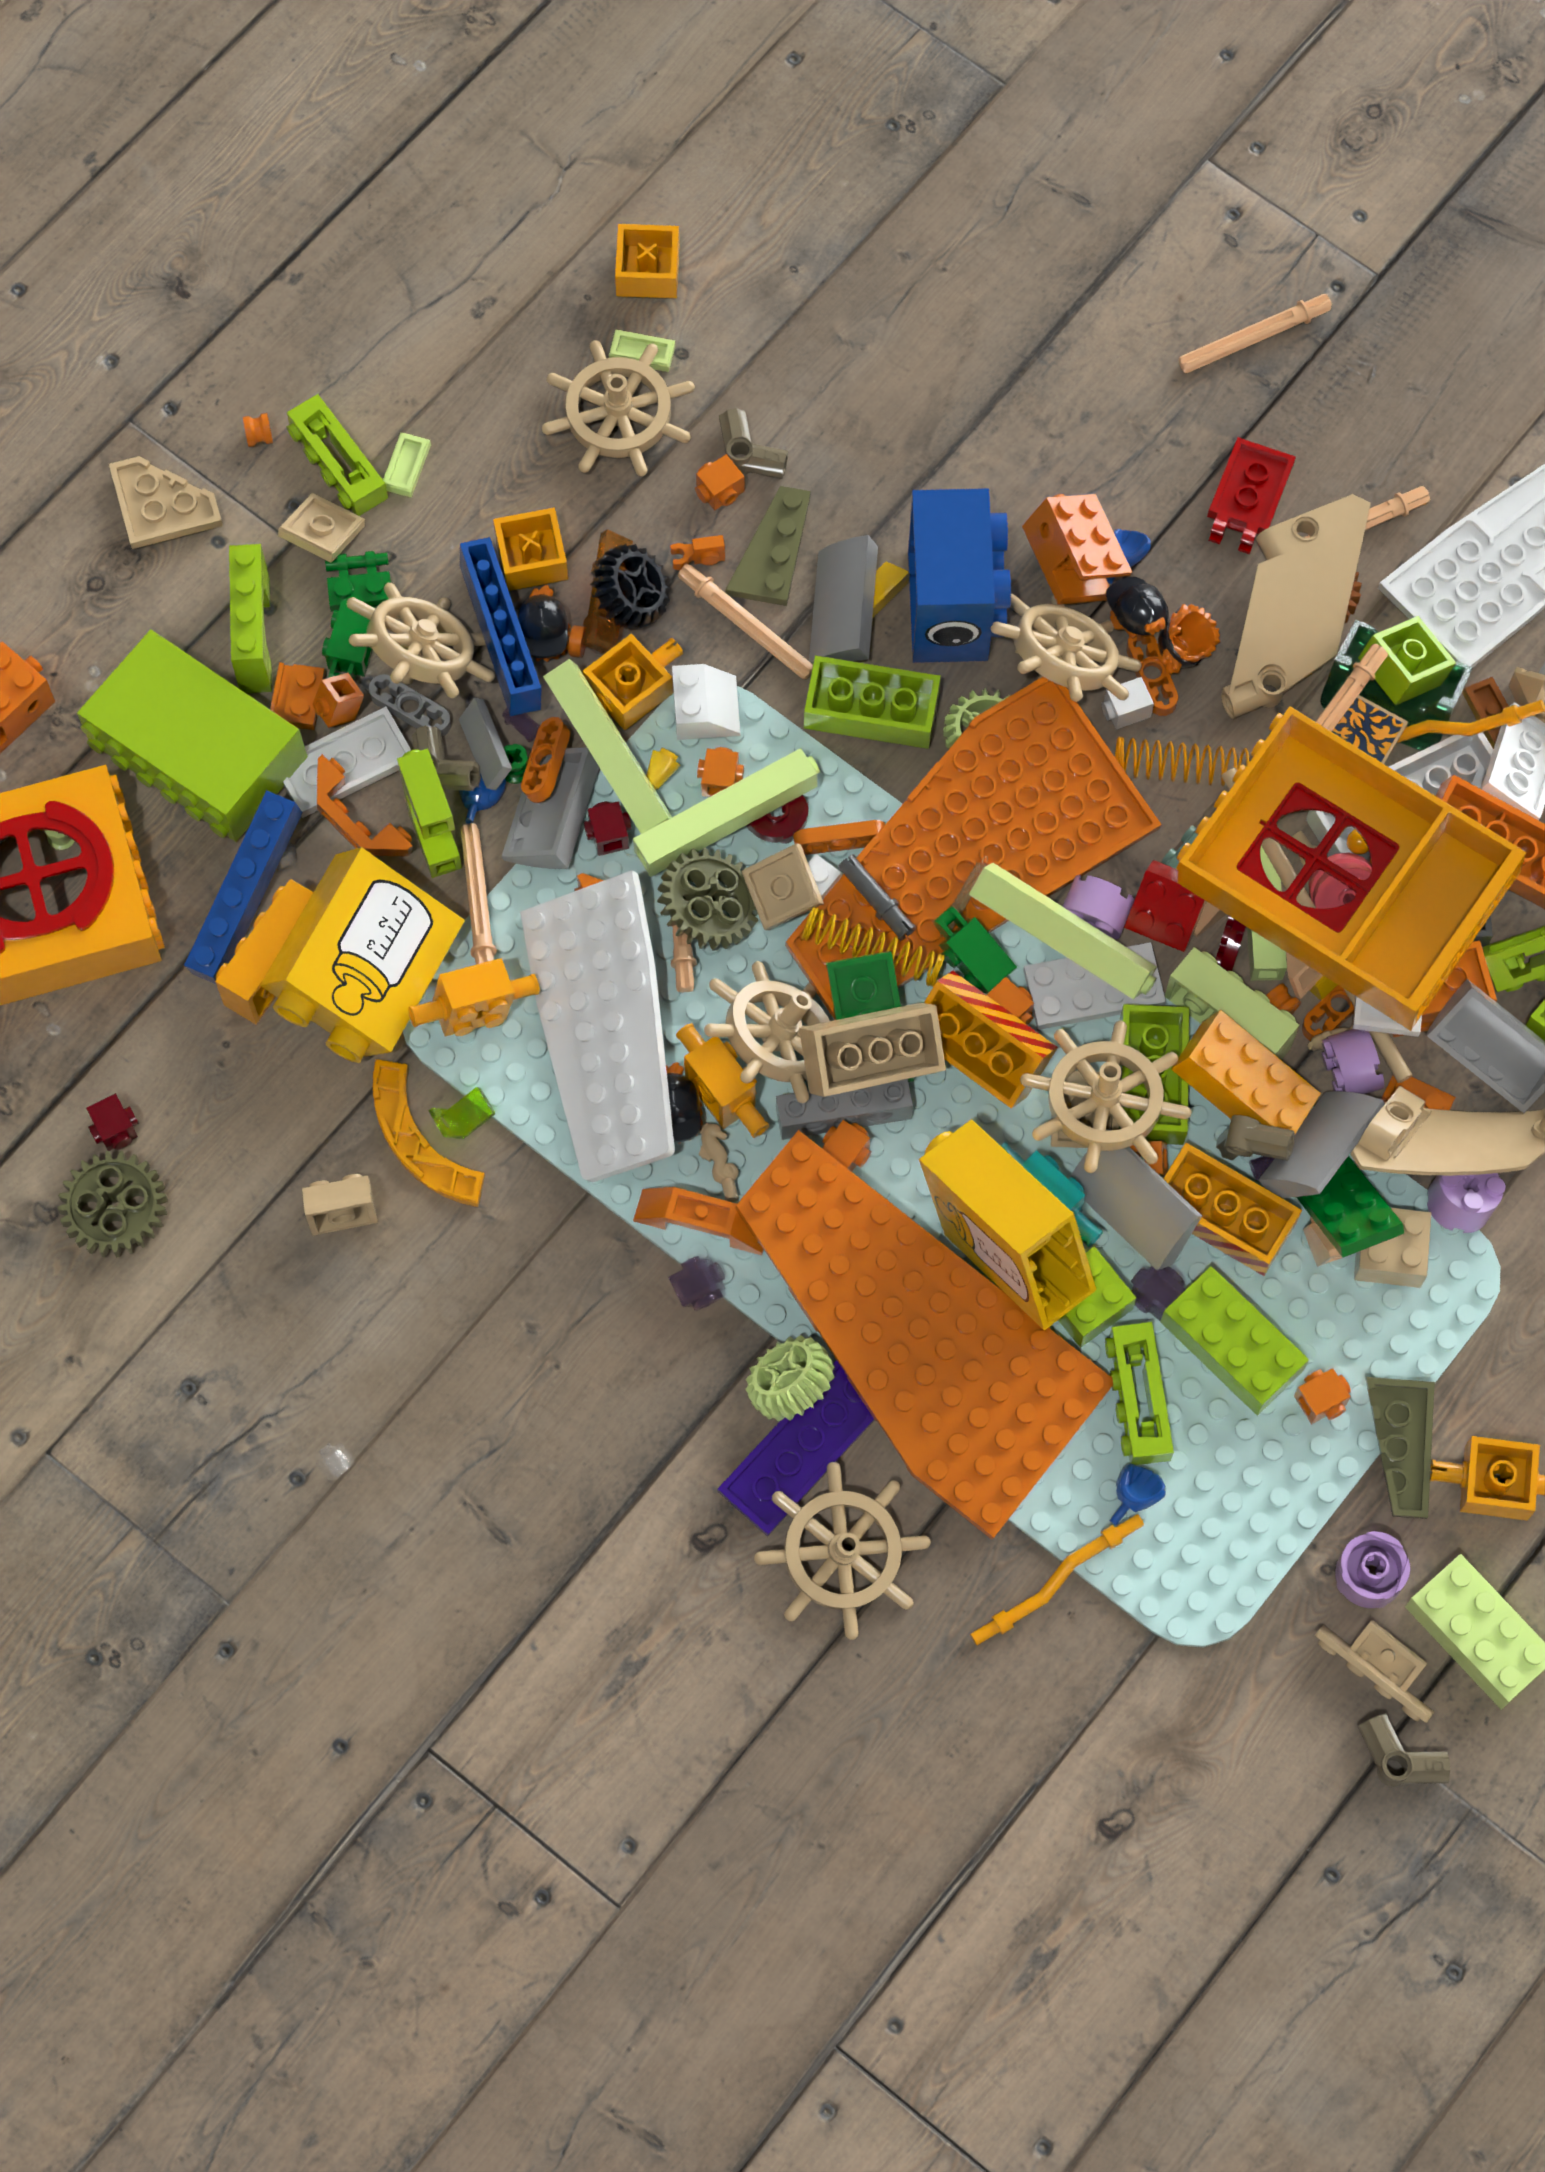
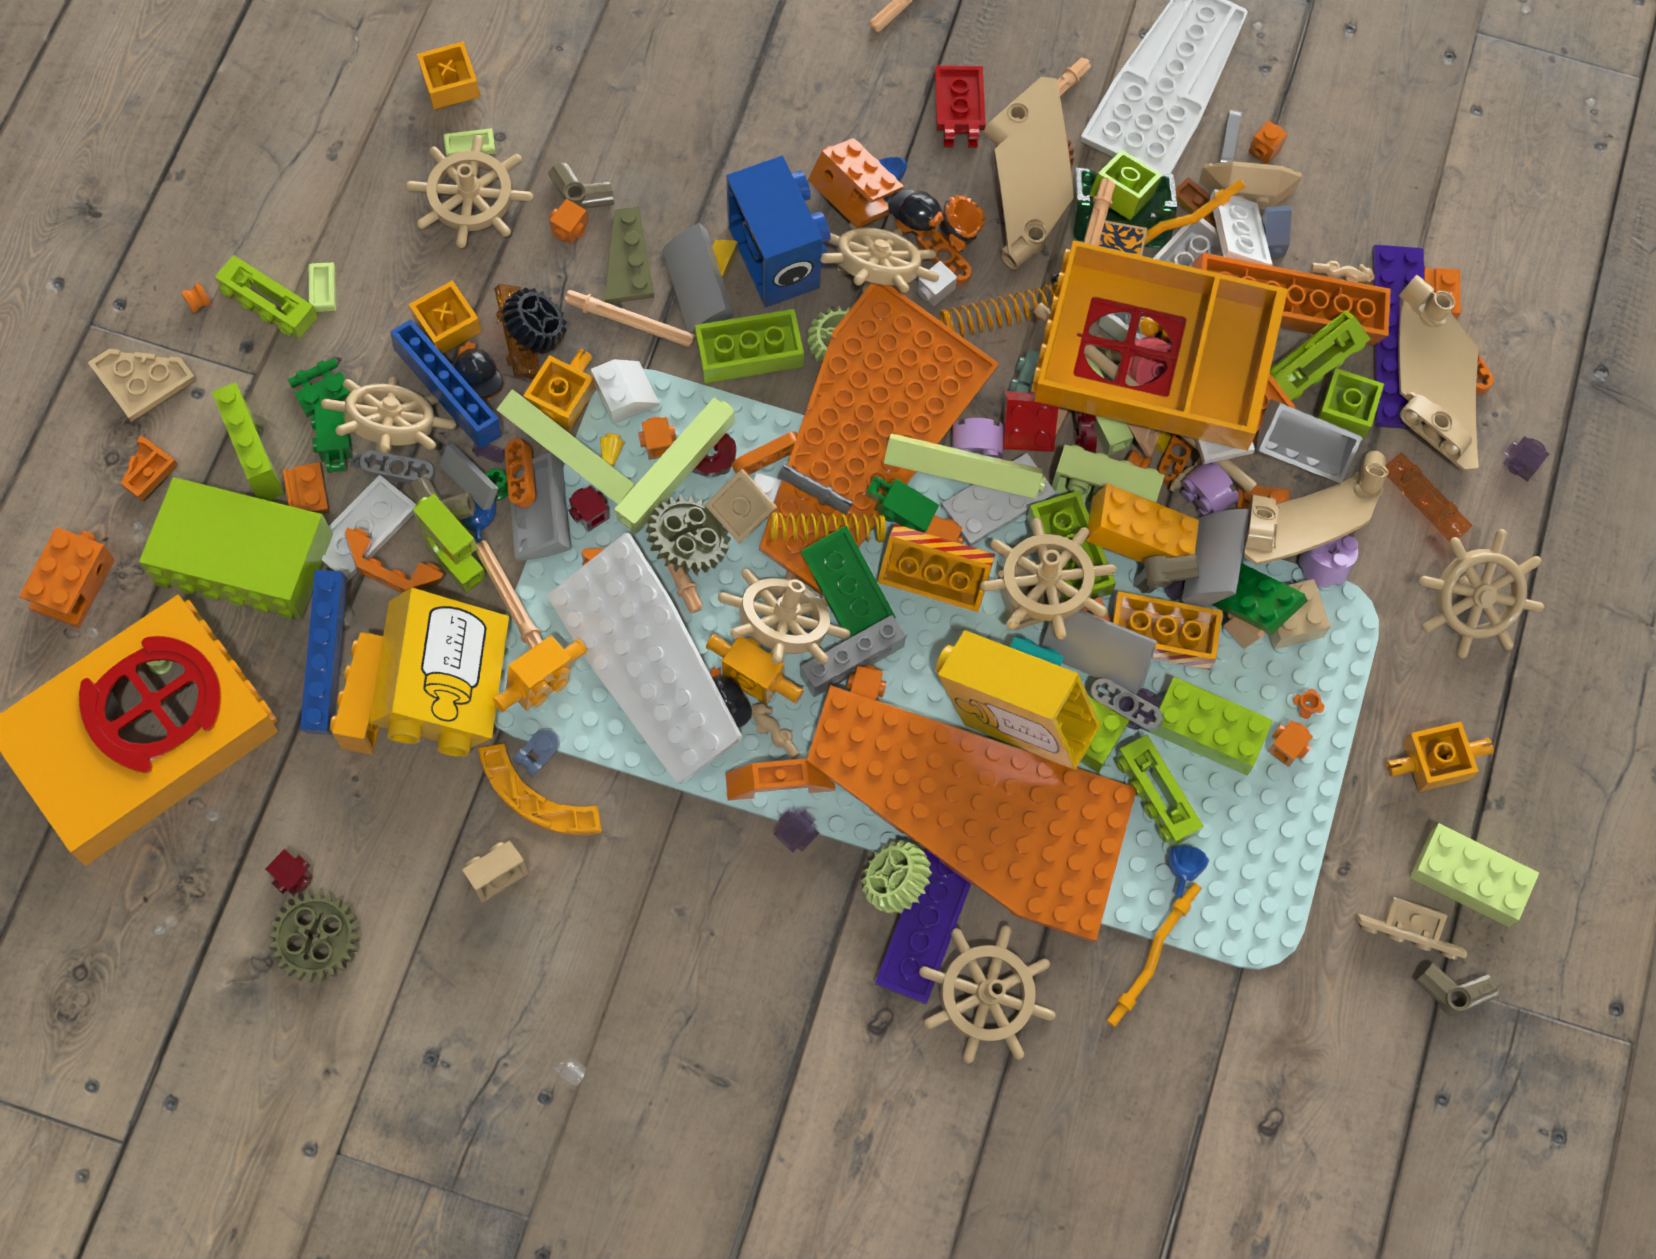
camera: 25 degrees left, 0 degrees up
(128, 610) = (147, 469): none -> orange wing
(321, 527) = (275, 355): tan tile -> none
(338, 700) = (341, 482): orange brick -> none
(450, 1080) = (543, 743): none -> sand blue plate
(464, 1115) = (564, 766): clear neon green bracket -> none
(576, 640) = (508, 376): orange tile -> none
(701, 550) = (576, 276): orange plate -> none
(872, 1049) = (862, 604): tan brick -> none
(967, 893) = (881, 456): tan piece -> none
(1133, 1254) = (1147, 708): none -> light grey beam
(1374, 1351) = (1312, 697): none -> orange plate
(1391, 1570) = (1368, 869): lavender brick -> none
(1404, 1436) = (1360, 752): olive wing -> none

